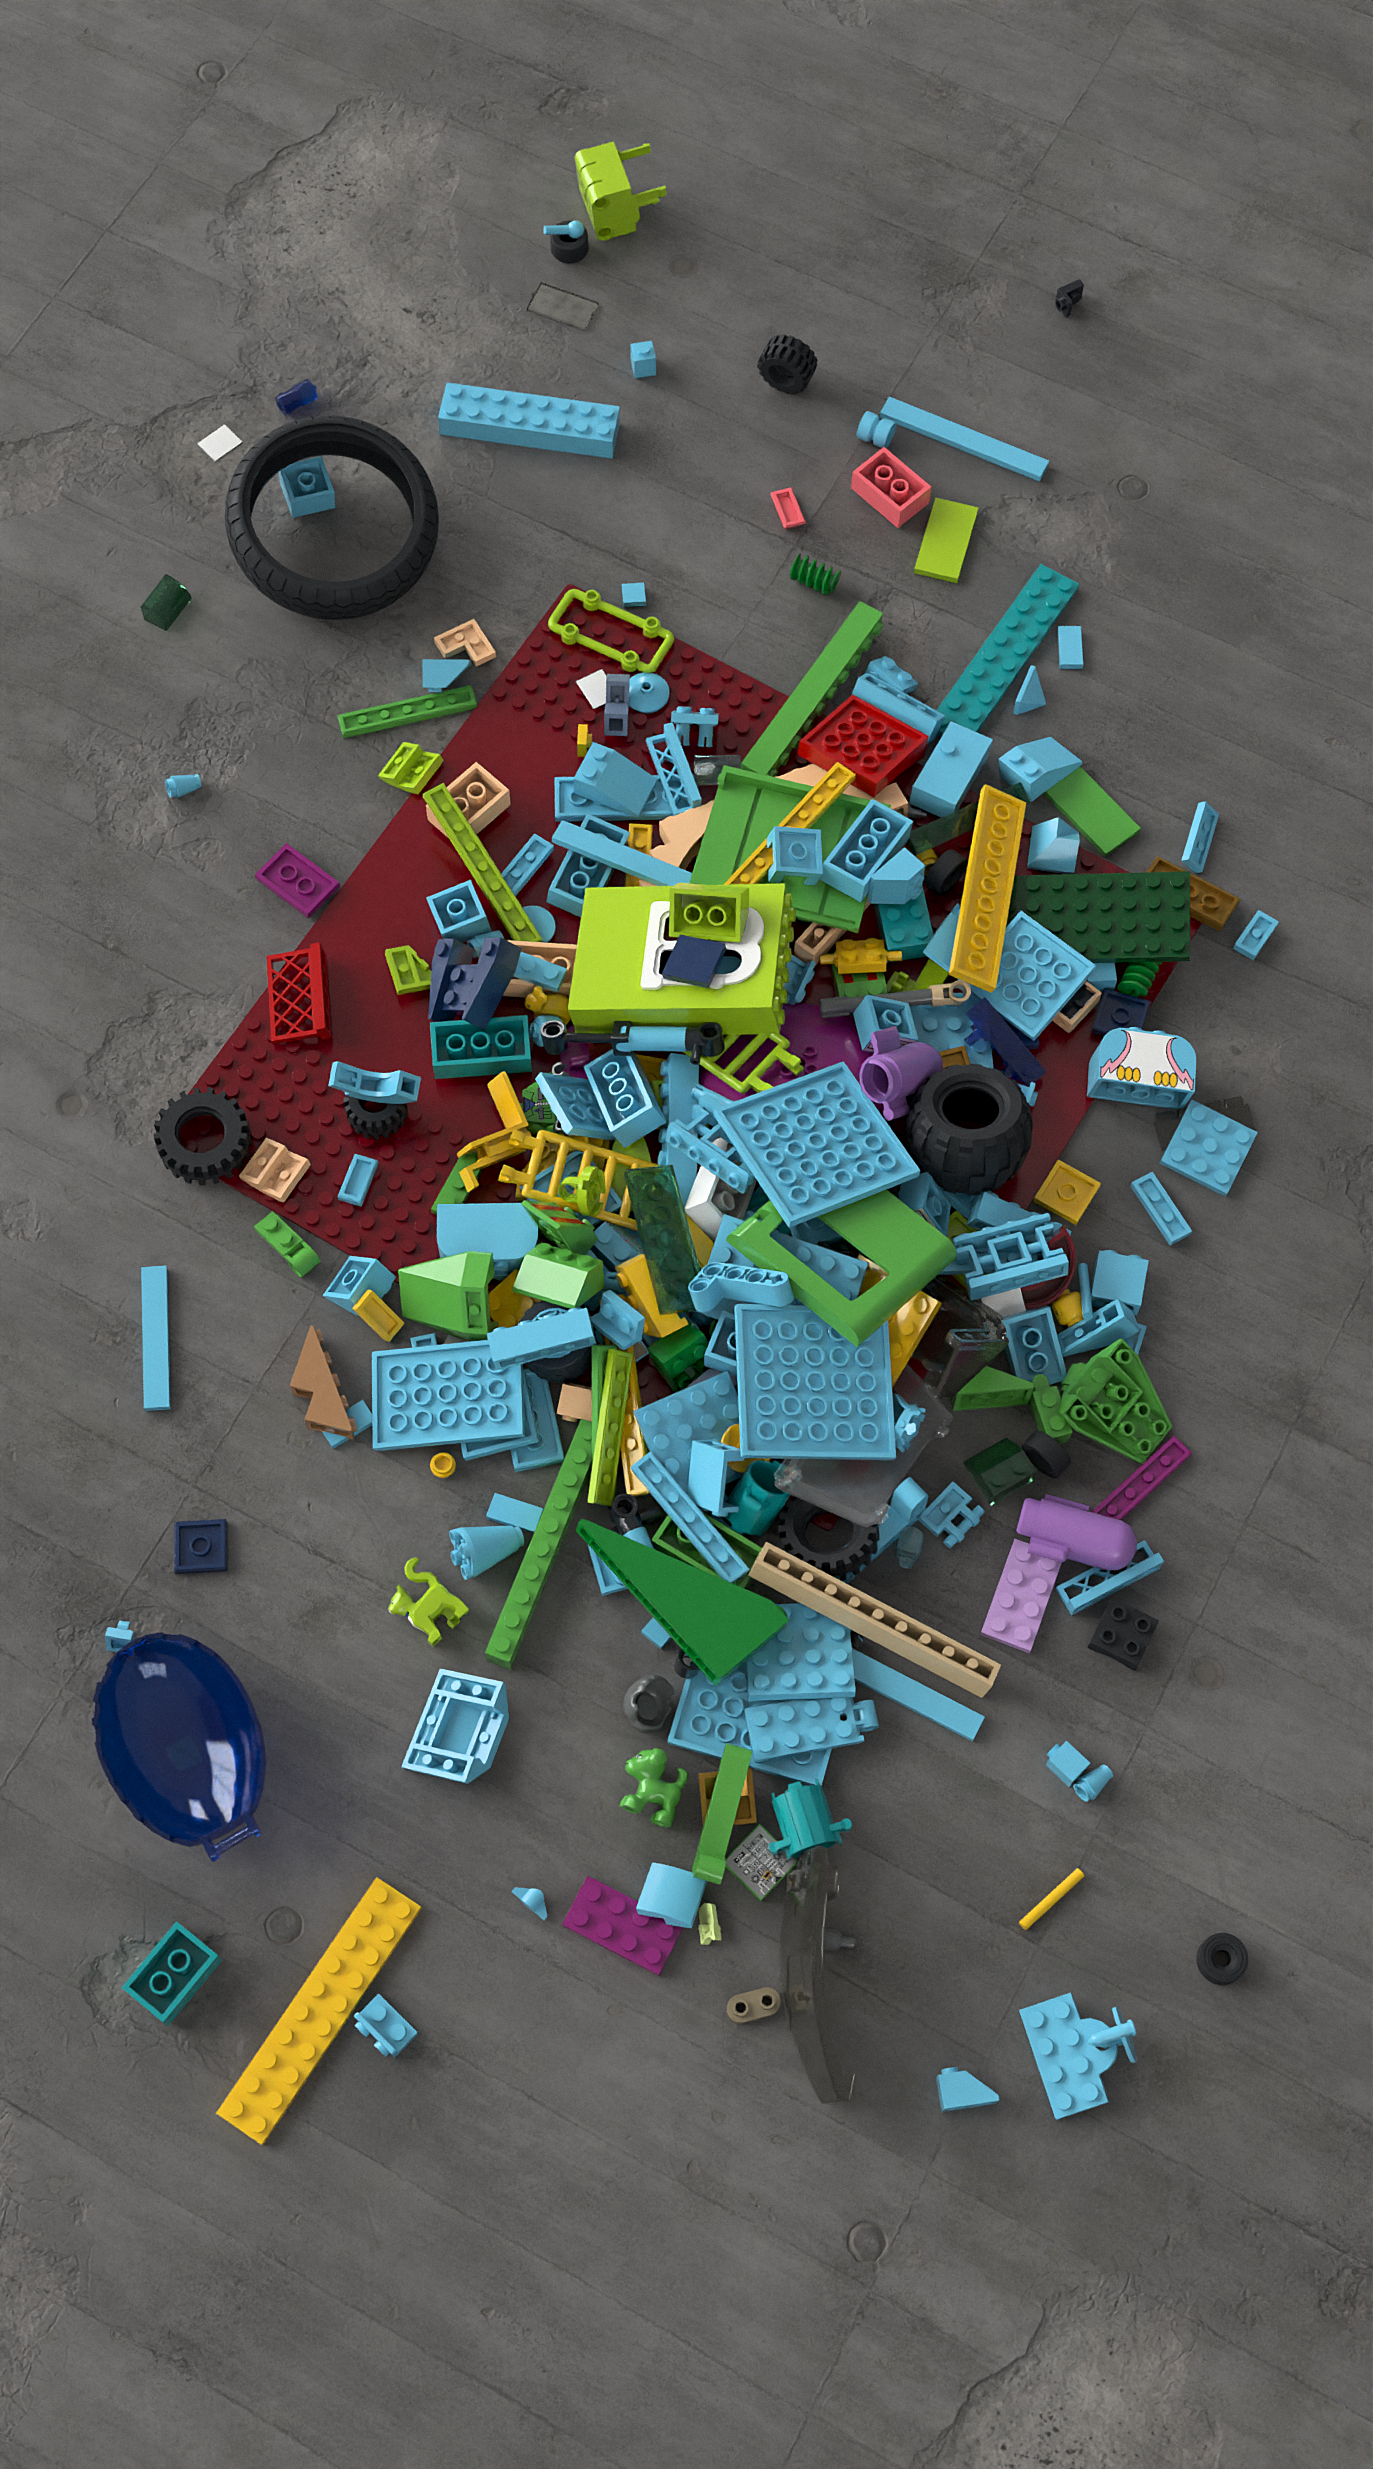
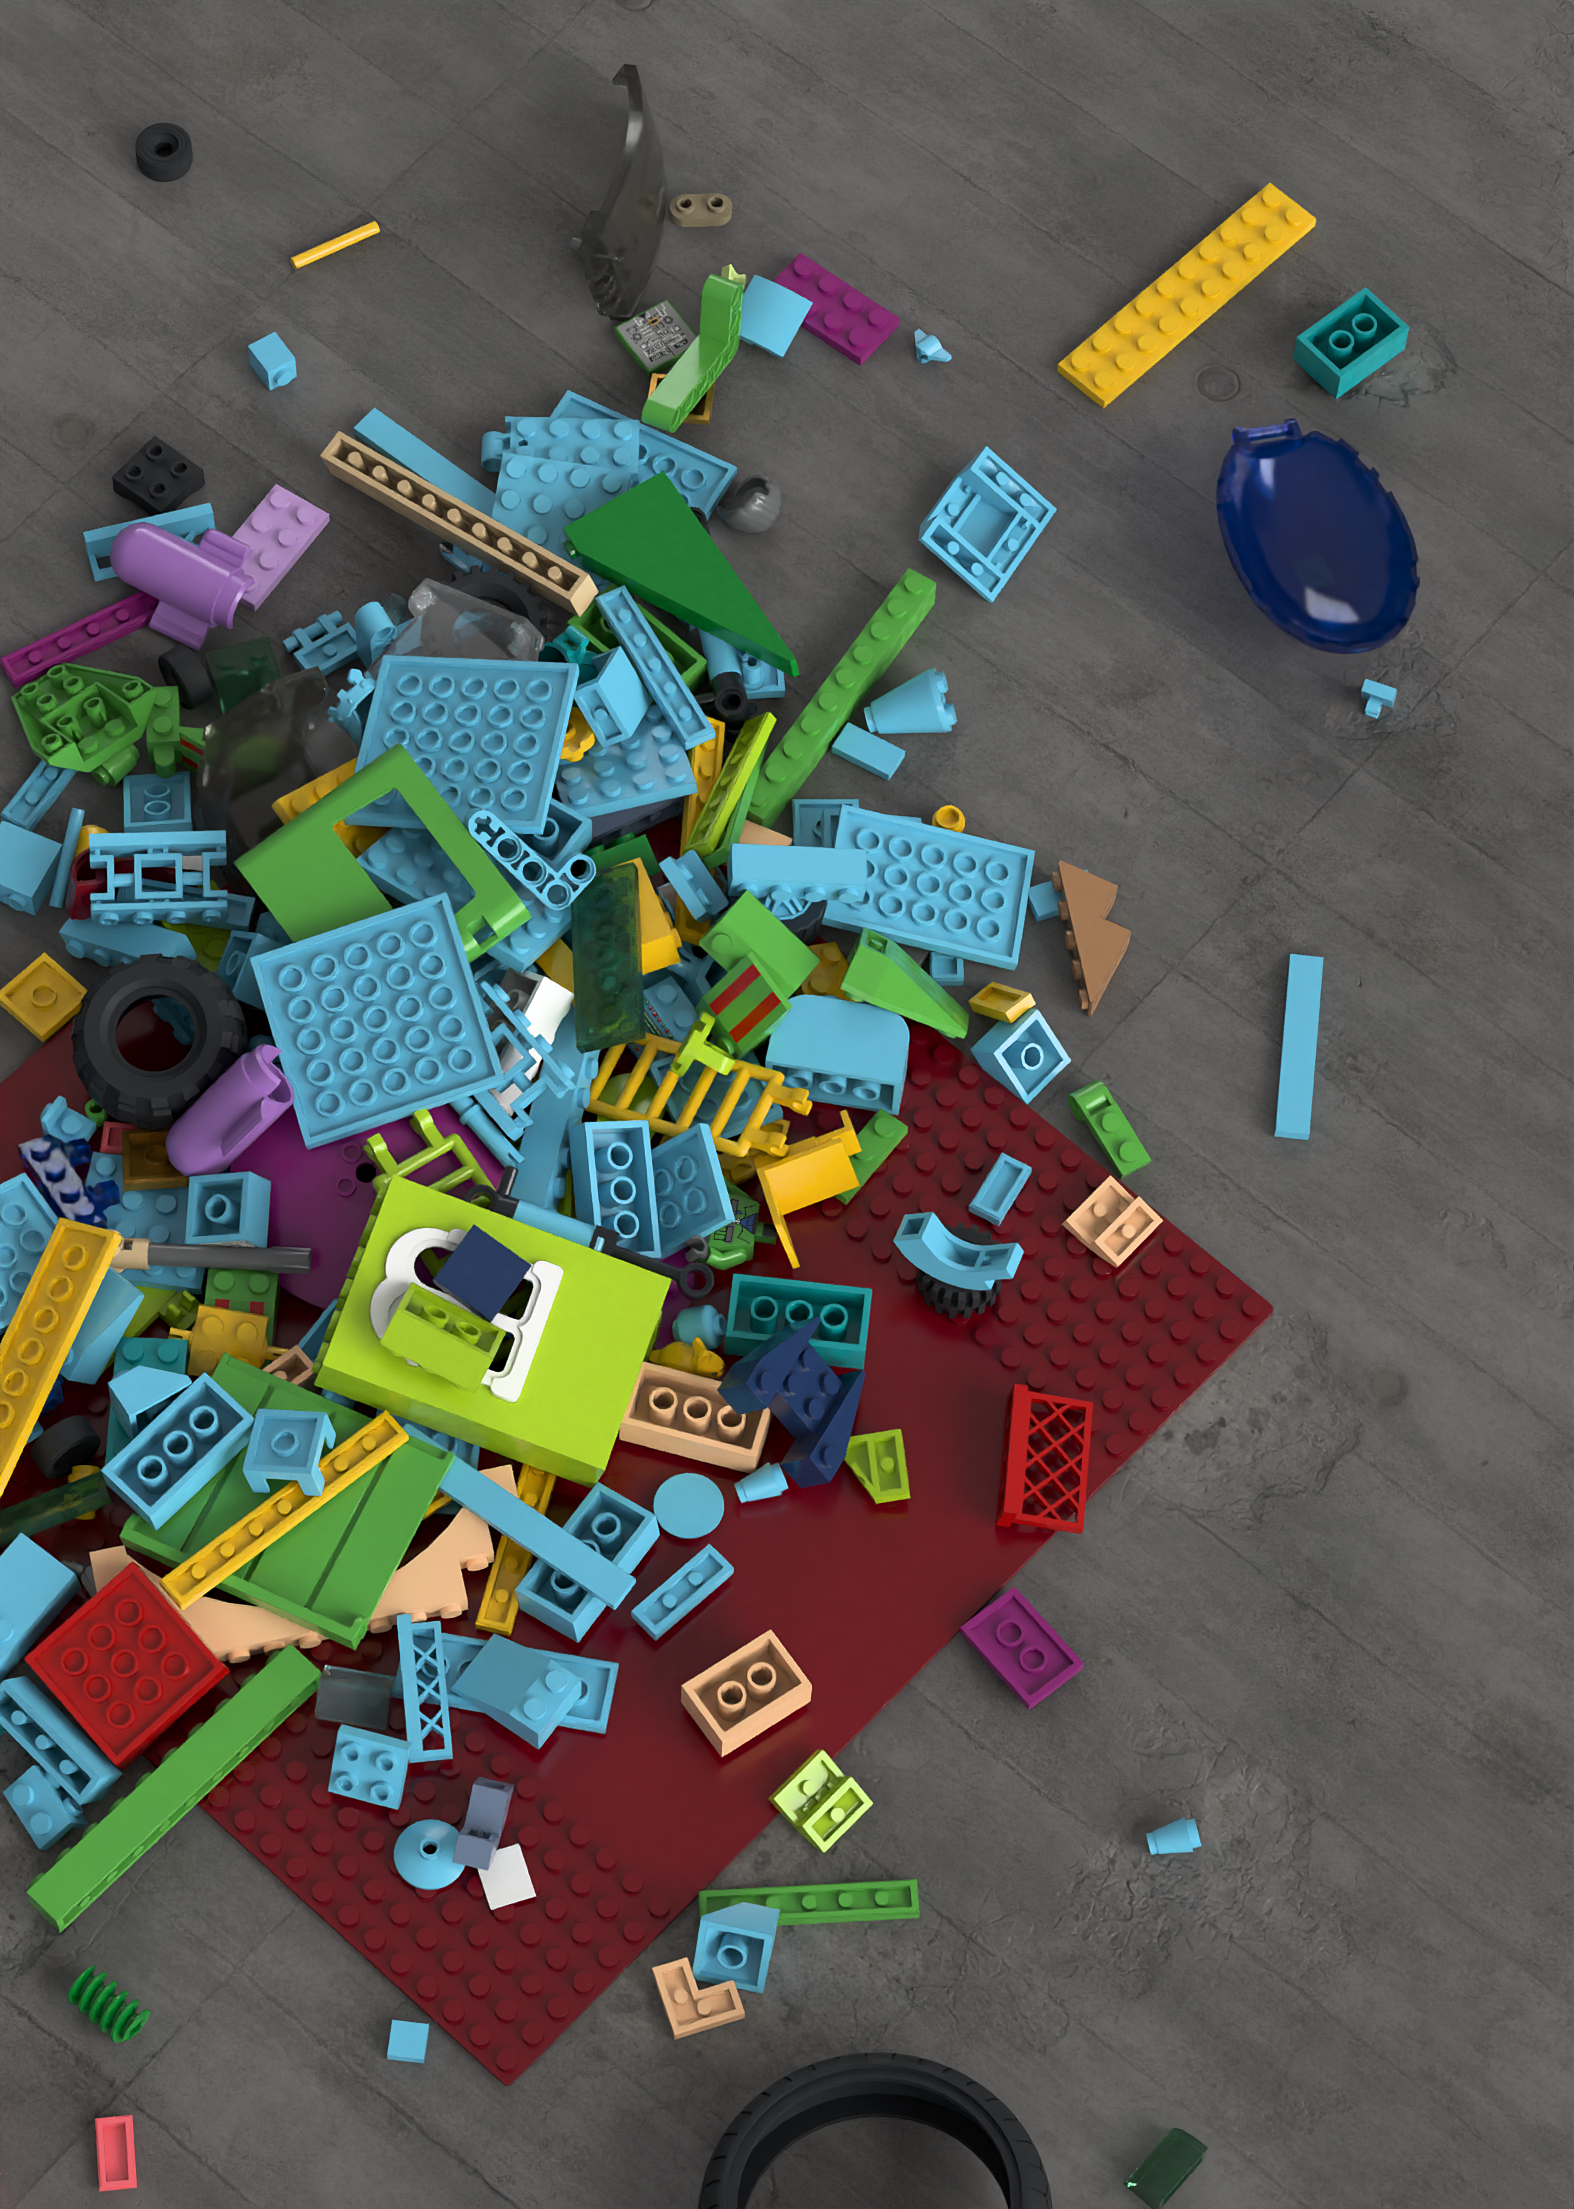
camera: 170 degrees left, 5 degrees down
(200, 1546) = (1268, 788): dark blue tile -> none
(211, 1163) = (1201, 1314): black tyre -> none
(386, 2026) = (1118, 262): medium azure bracket -> none
(434, 1603) = (994, 659): lime animal -> none
(459, 912) = (793, 1522): medium azure brick -> none
(480, 865) = (746, 1578): lime tile -> none
(540, 972) = (700, 1393): medium azure plate -> none
(584, 740) = (547, 1775): yellow plate -> none
(629, 659) = (477, 2028): lime bar -> none
(647, 1769) = (765, 418): bright green animal -> none
(805, 1820) = (596, 349): teal container -> none
(962, 2091) = (491, 86): medium azure slope -> none
(1070, 2053) = (356, 89): medium azure plate -> none
(1091, 1783) = (238, 344): medium azure cone -> none
(1106, 1326) = (53, 807): medium azure slope -> none

